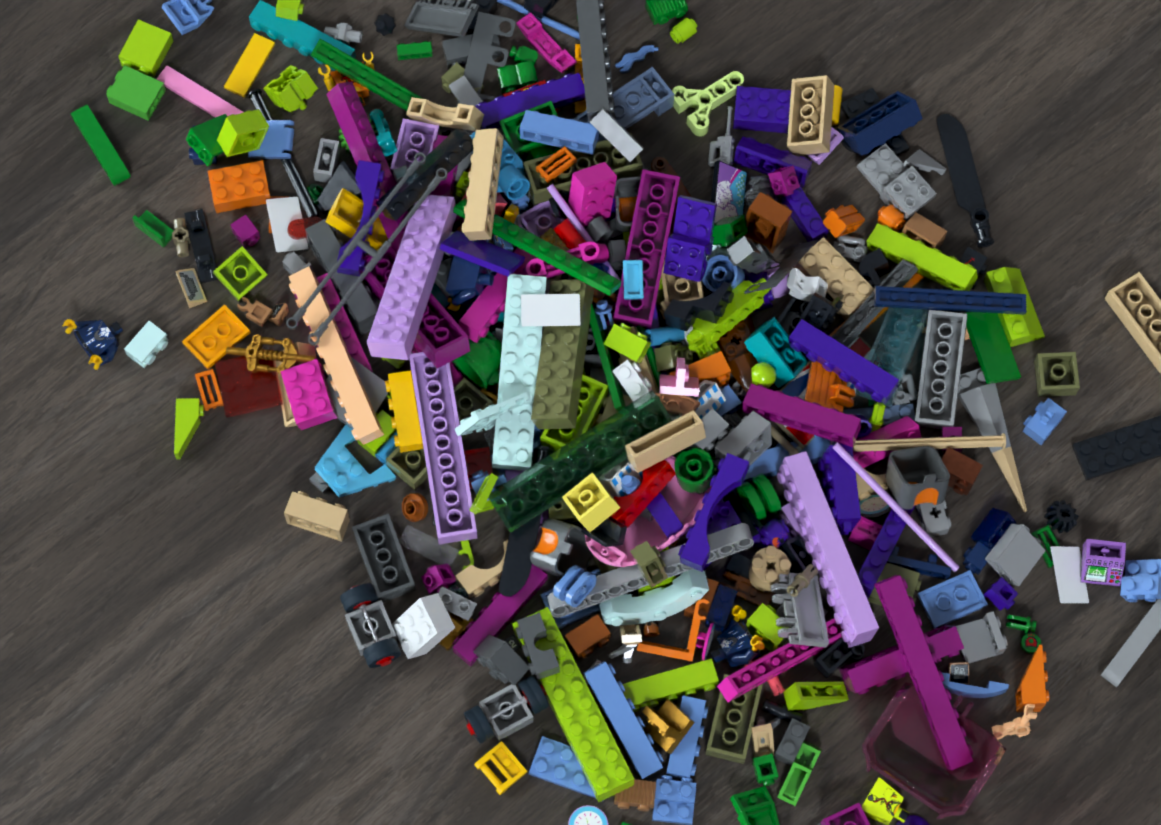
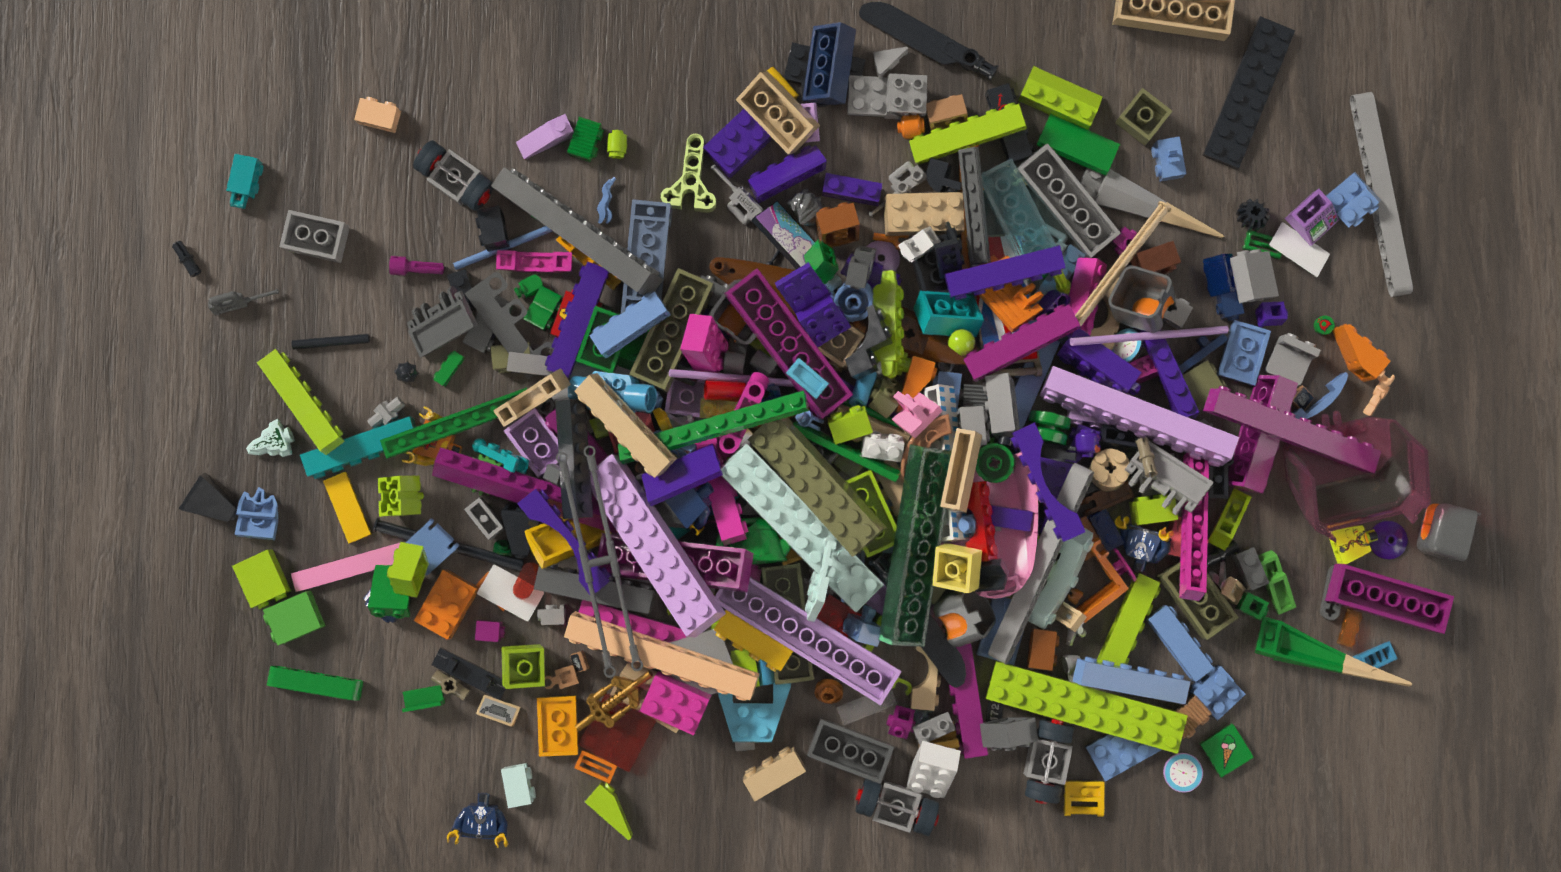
camera: 45 degrees left, 15 degrees up
(483, 493) = (877, 642): lime tile -> none
(542, 662) = (1042, 707): dark grey arch -> none
(544, 174) = (654, 367): orange tile -> none
(550, 310) = (778, 465): white sticker -> none
(574, 586) = (995, 626): medium blue brick -> none
(616, 135) = (674, 284): tile -> none
(649, 563) = (1045, 567): olive brick -> none
(667, 725) = (1162, 650): pearl gold bracket -> none
(784, 181) = (816, 183): magenta brick -> none
(785, 267) = (890, 244): dark grey piece -> none
(843, 220) = (883, 165): orange brick -> none
(949, 300) = (1024, 146): dark blue plate -> none
(1029, 625) = (1305, 319): green arm -> none

